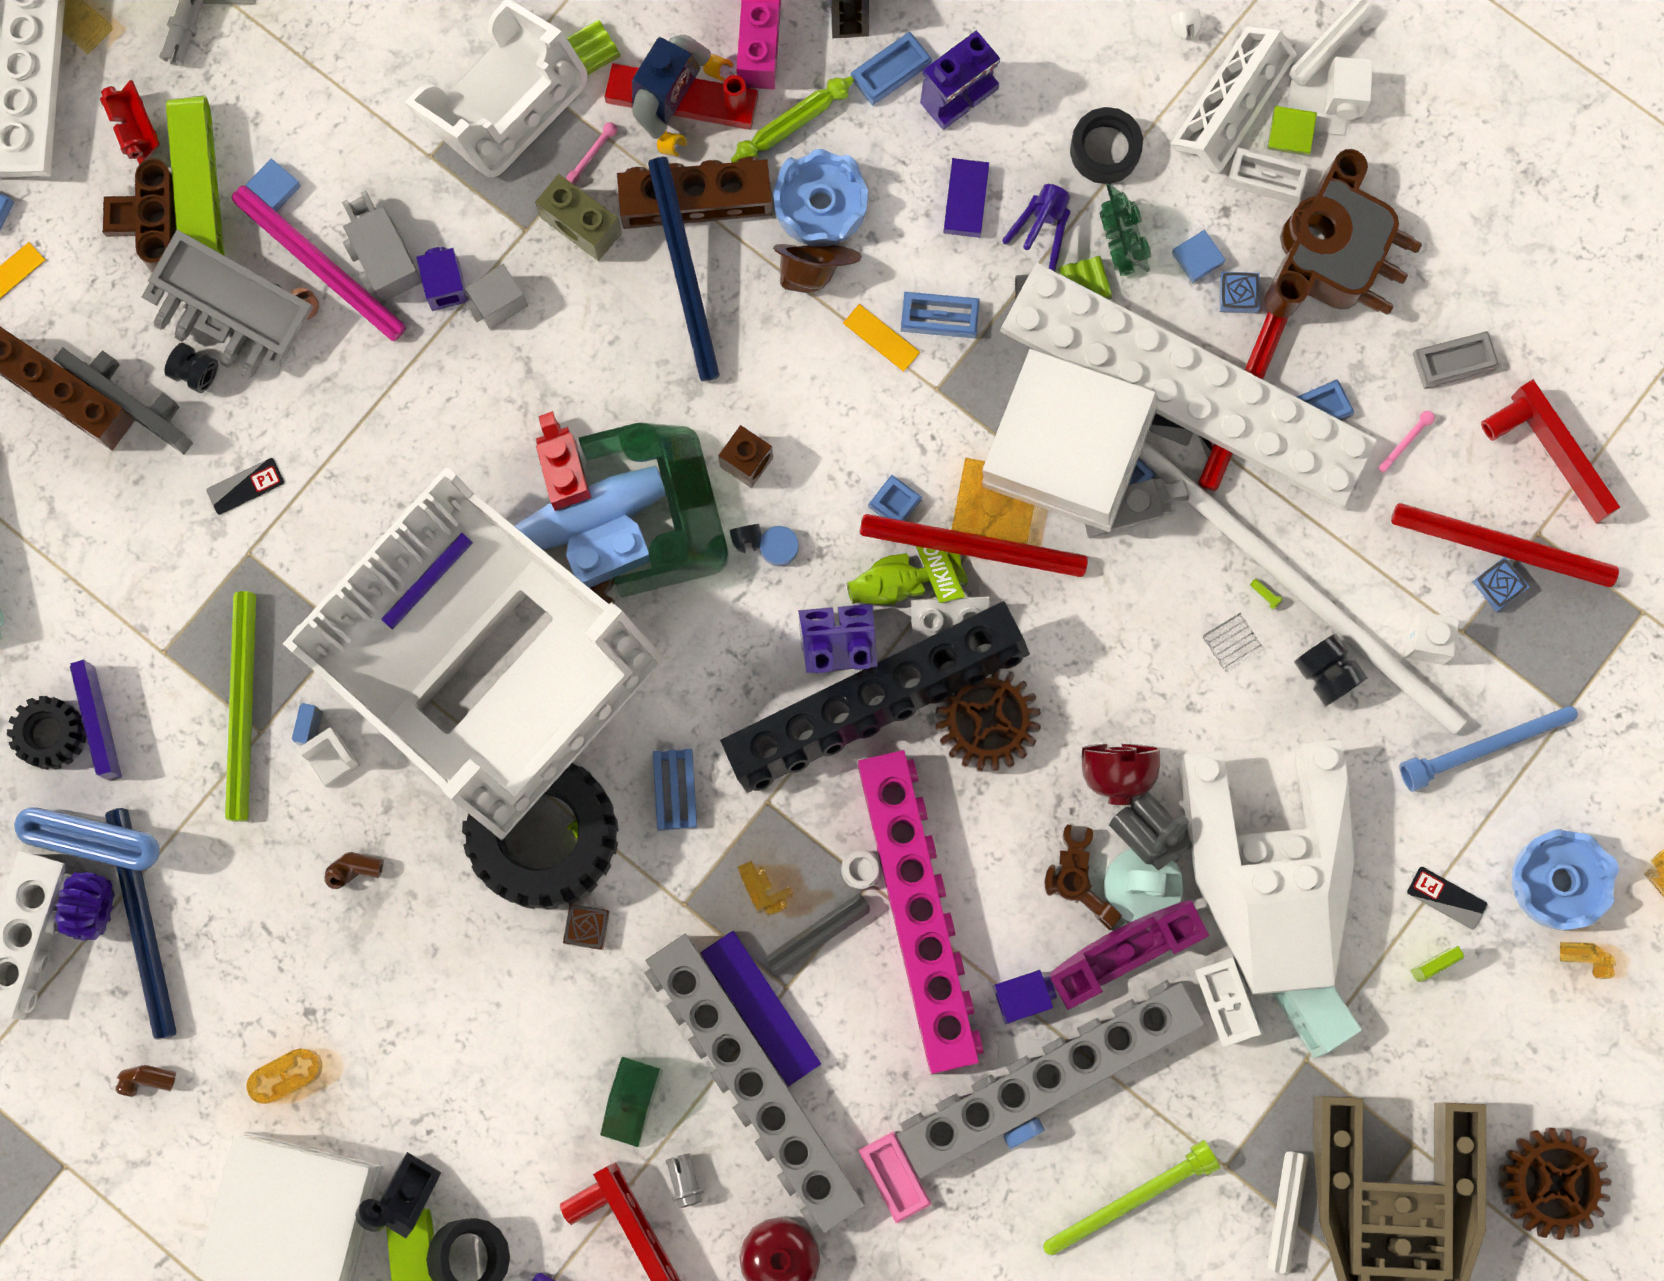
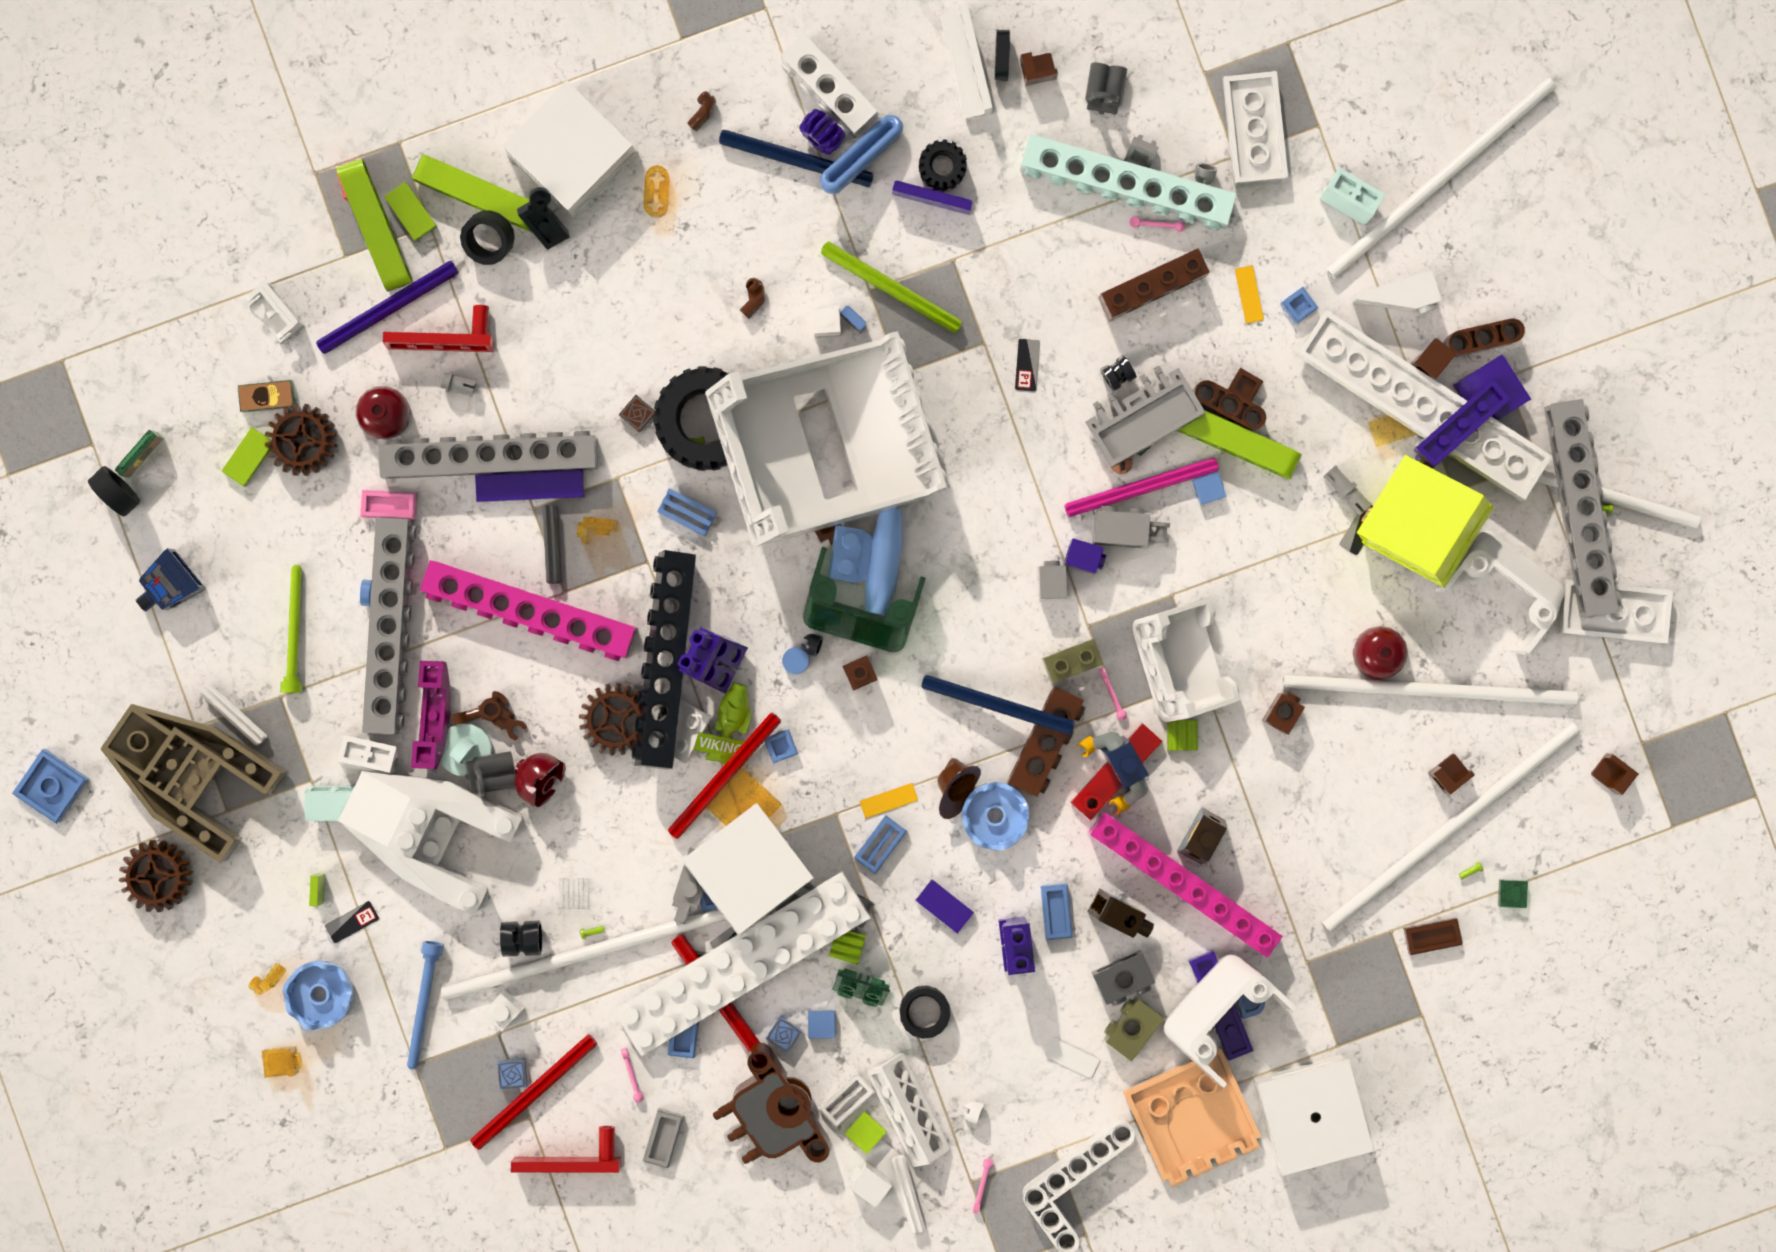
camera: 120 degrees right, 10 degrees up
(136, 132) = (1289, 423): red hinge -> none
(154, 418) = (1145, 312): dark grey hinge -> none
(426, 581) = (892, 438): dark purple bar -> none
(561, 464) = (920, 559): hinge -> none
(630, 1101) = (521, 381): clear green slope -> none
(794, 118) = (1058, 830): lime wheel -> none
(861, 869) = (574, 592): white tile -> none
(1024, 996) = (442, 641): dark purple brick -> none
(1048, 207) = (907, 953): dark purple plant -> none

